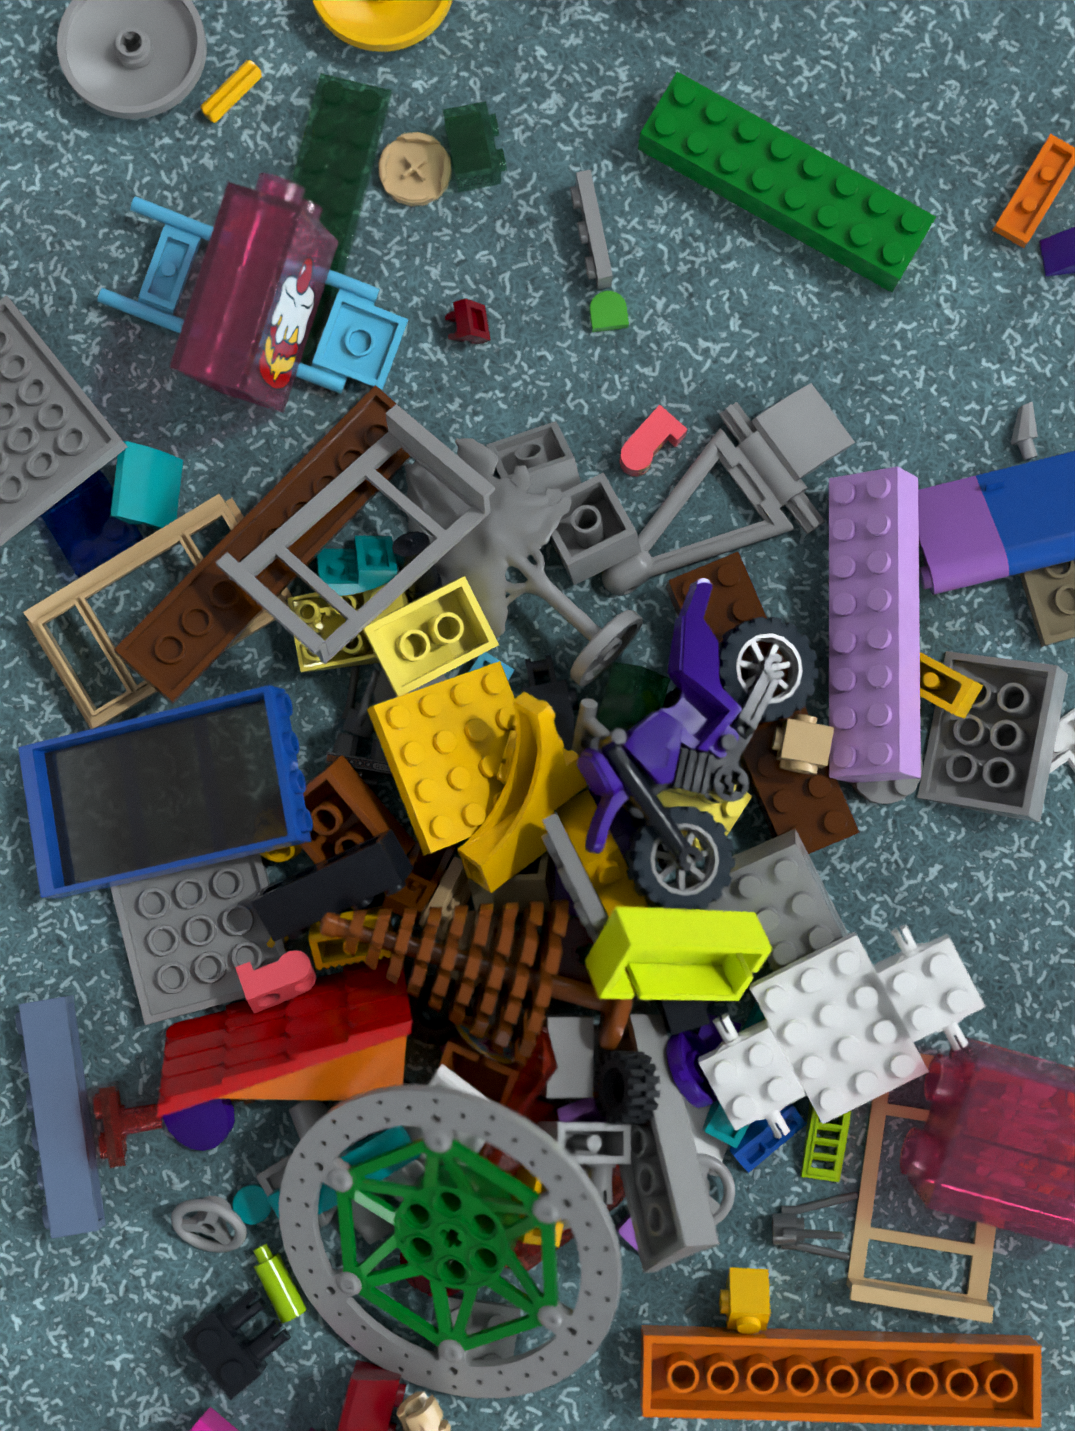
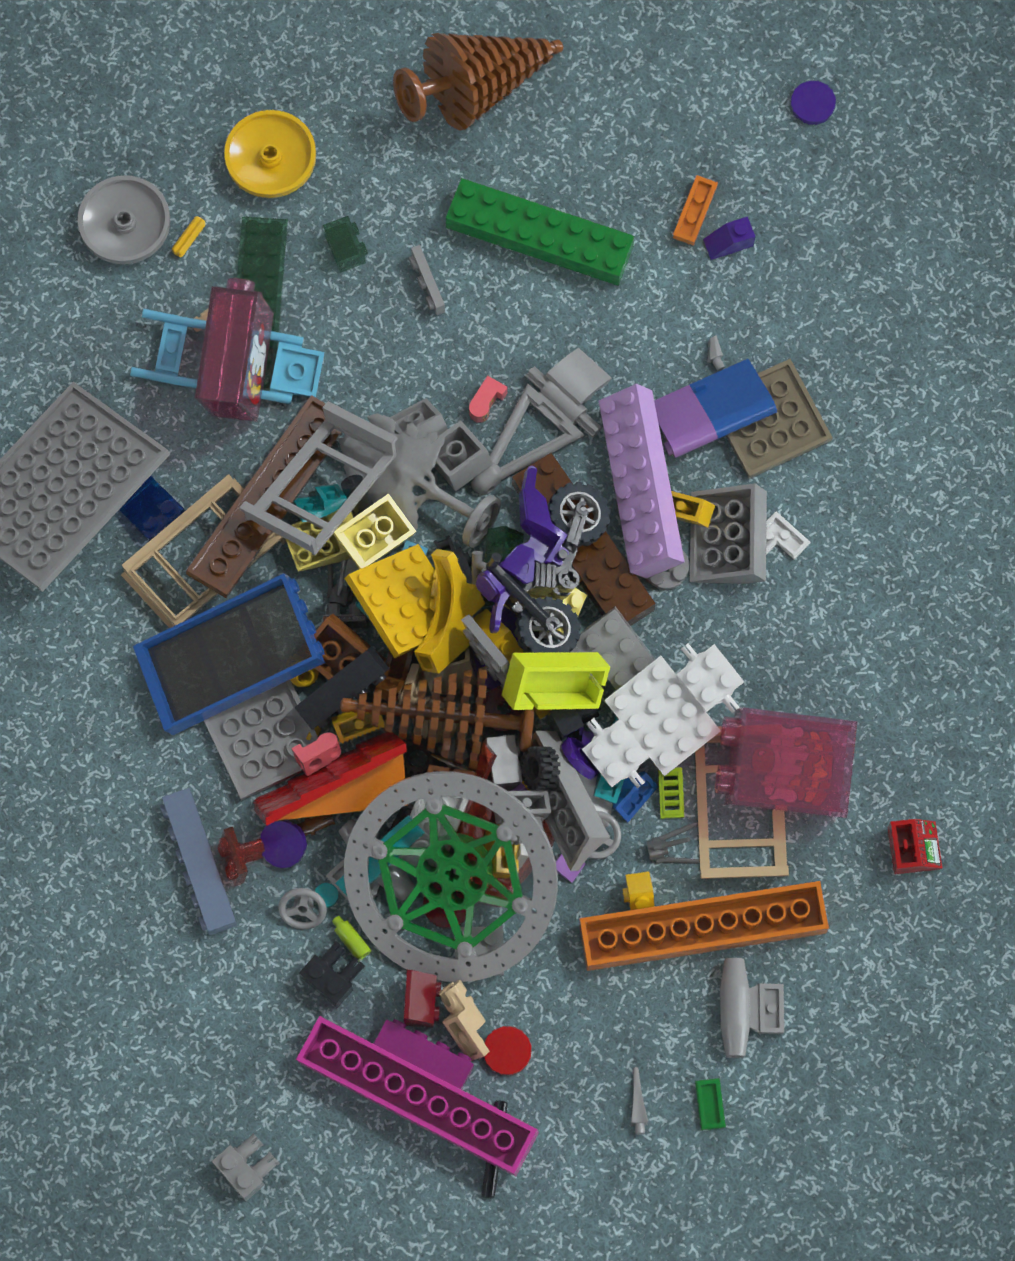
camera: 10 degrees left, 10 degrees down
(146, 486) = (183, 478): teal slope -> none
(415, 169) = (311, 263): tan tile -> none
(470, 322) = (362, 347): dark red tile -> none
(608, 312) = (446, 327): bright green tile -> none
(802, 744) = (610, 555): tan brick -> none

